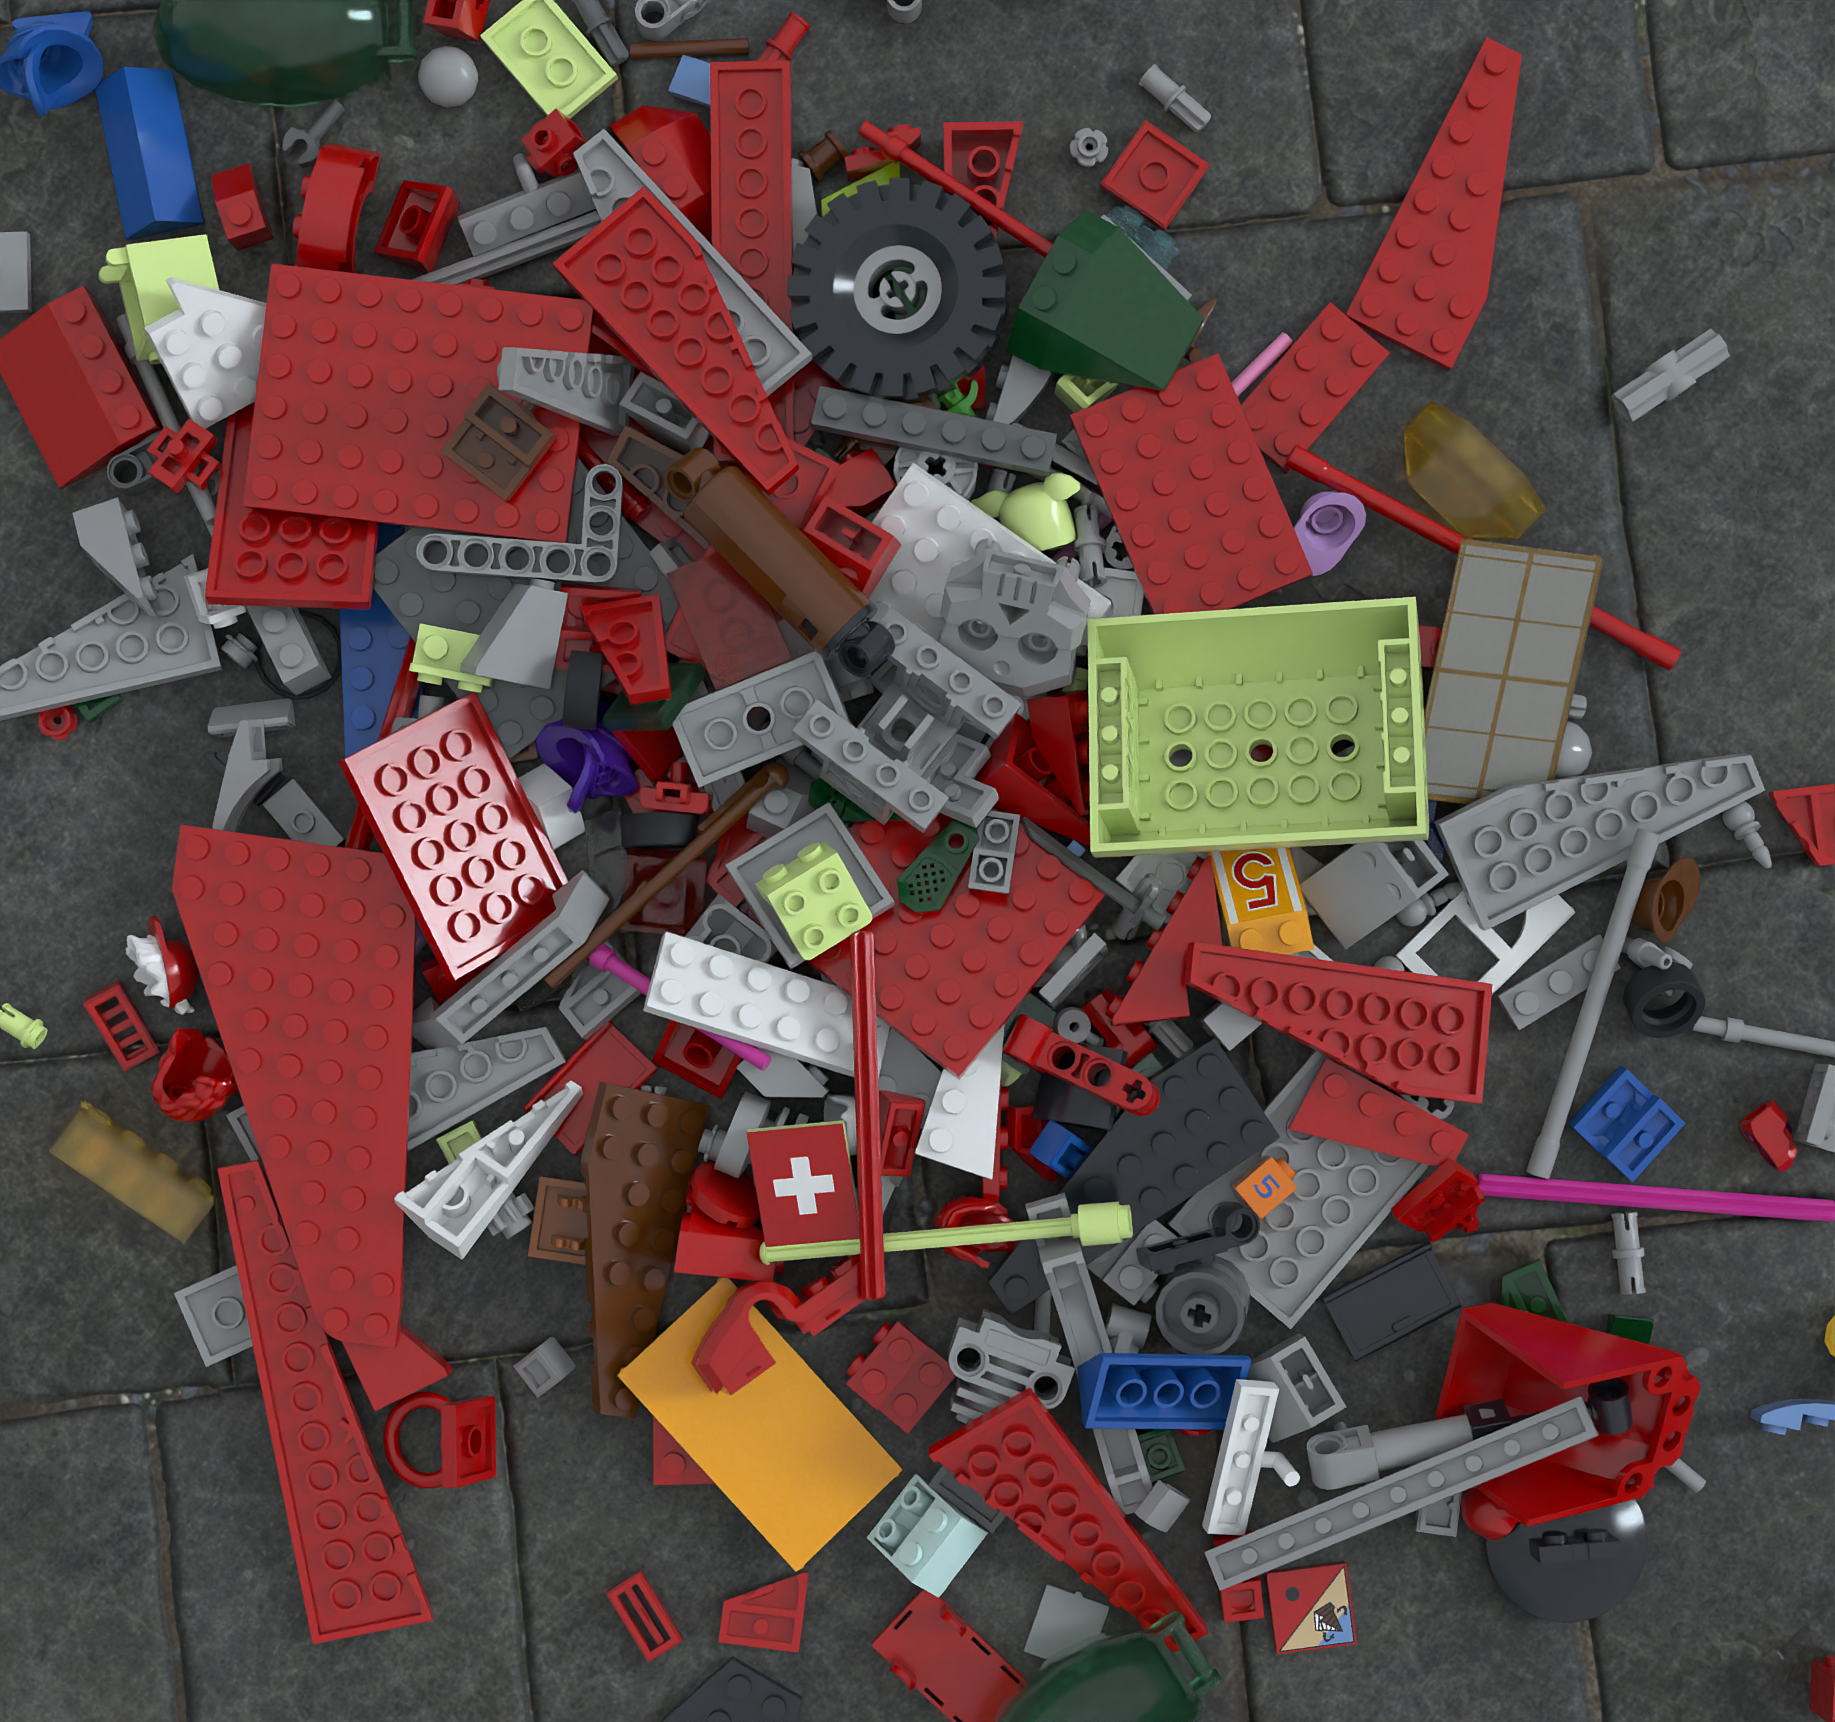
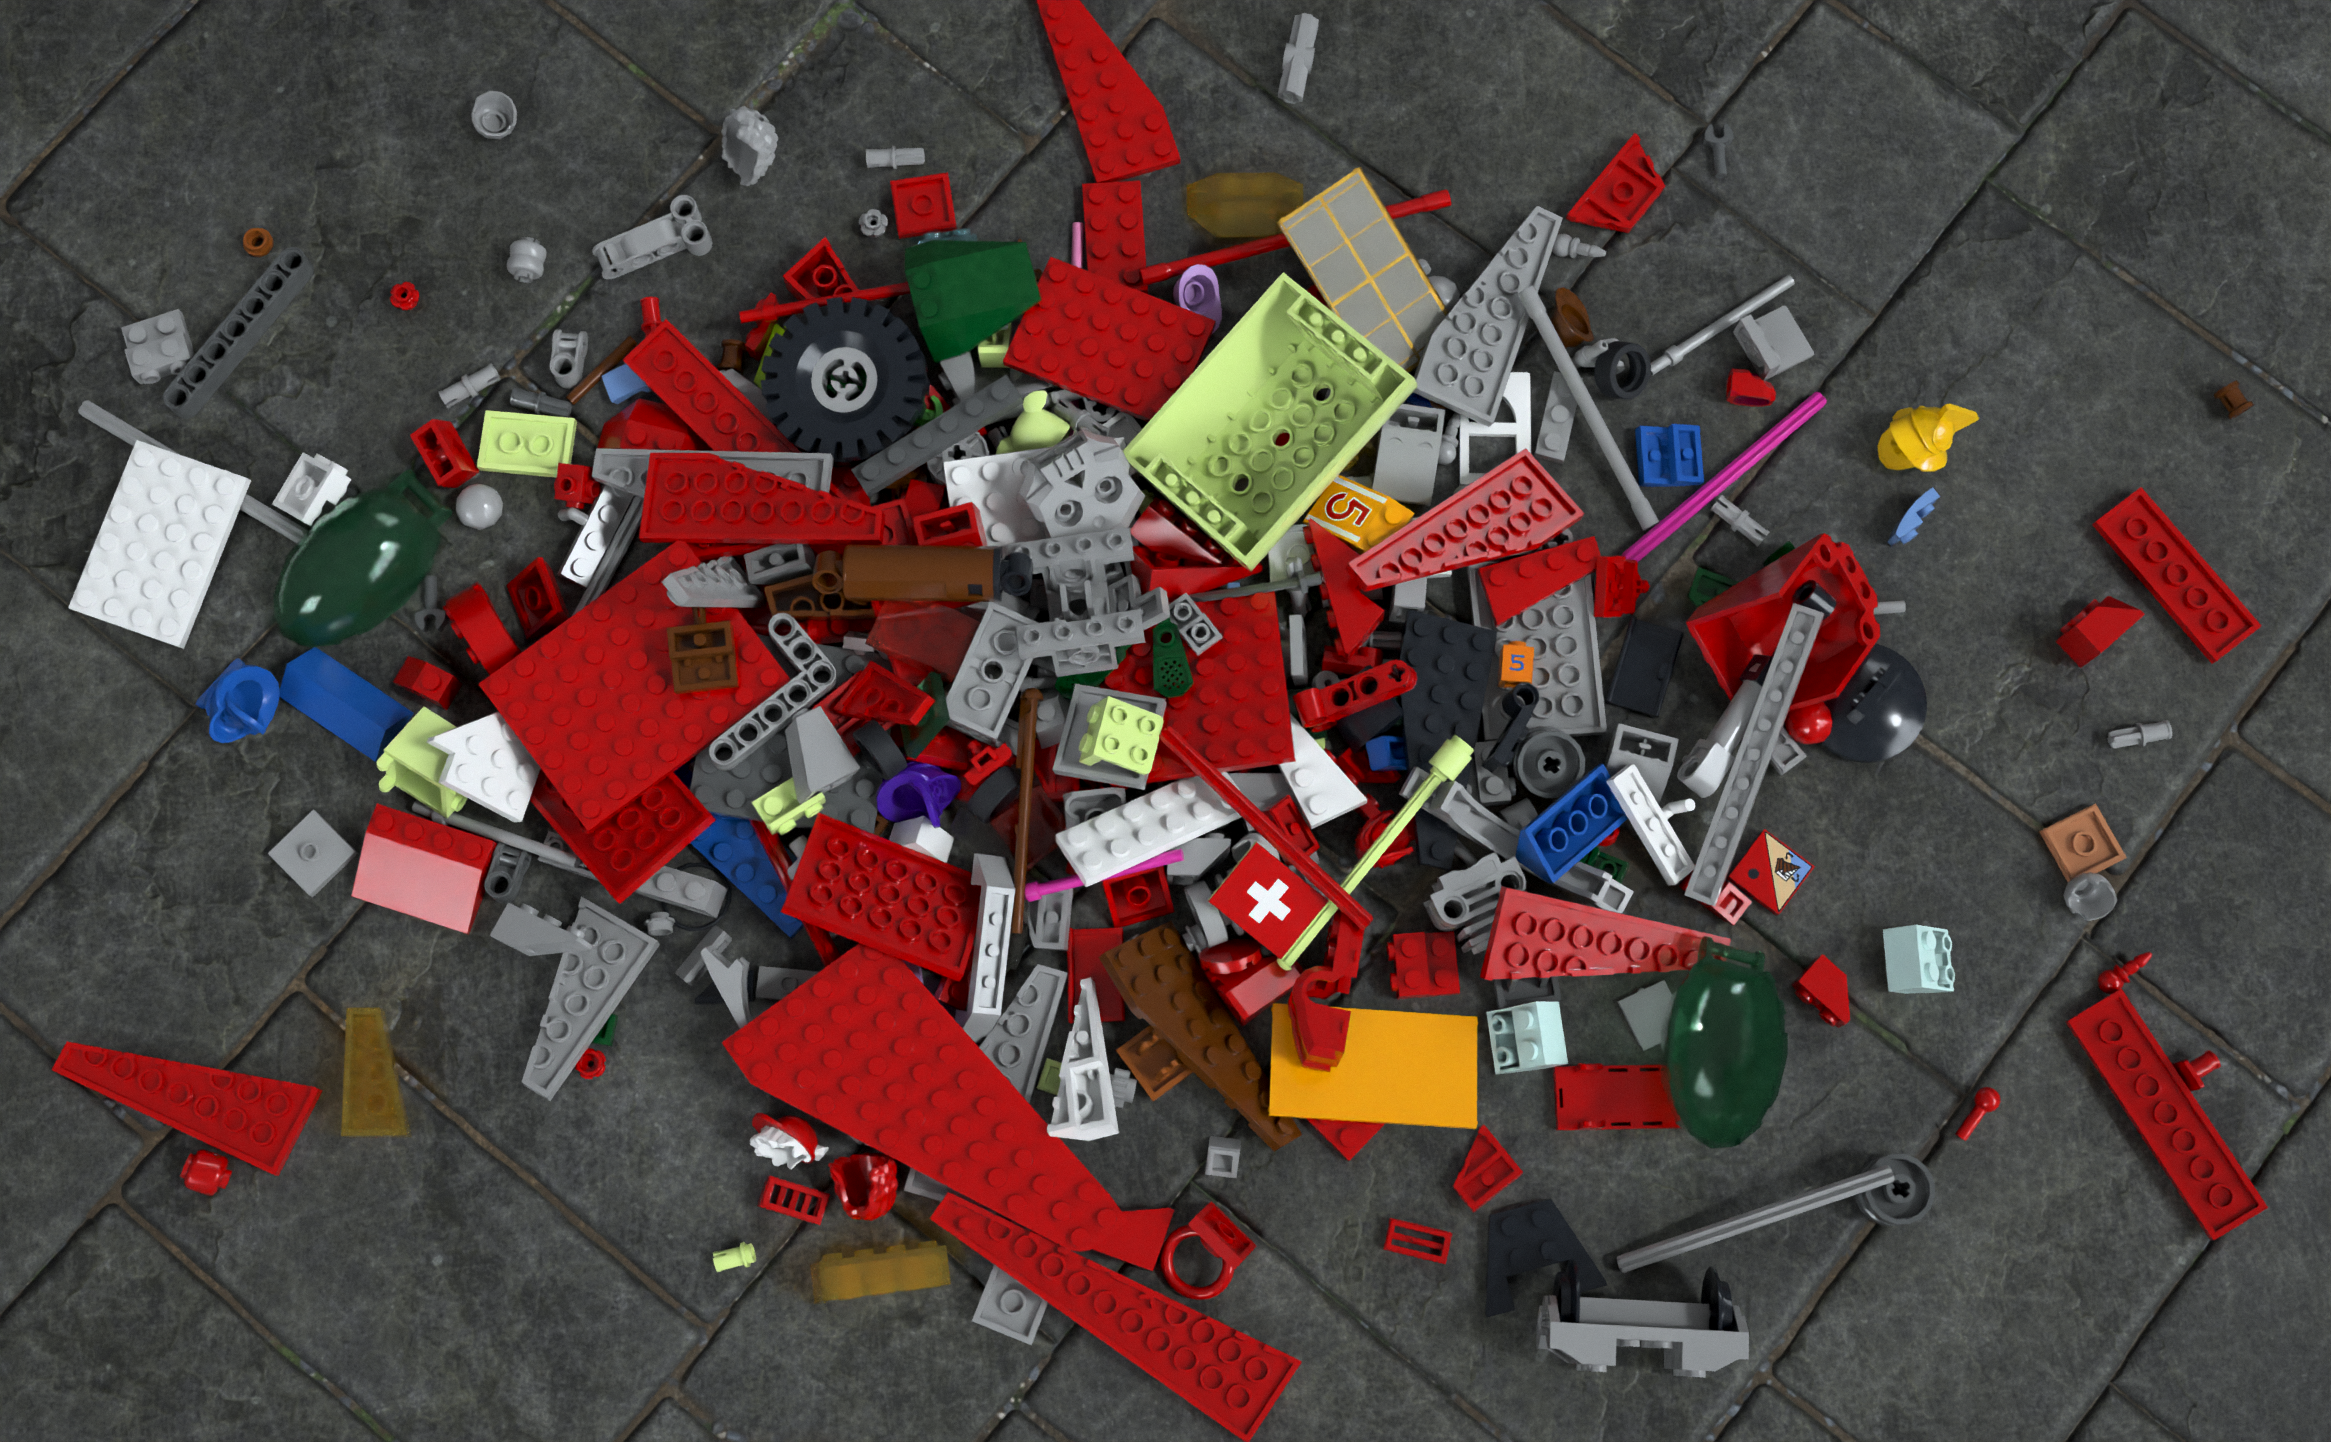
camera: 40 degrees left, 10 degrees down
(185, 453) = (526, 837): red piece -> none
(208, 613) = (617, 913): white bracket -> none
(1162, 1506) = (1637, 890): light grey slope -> none

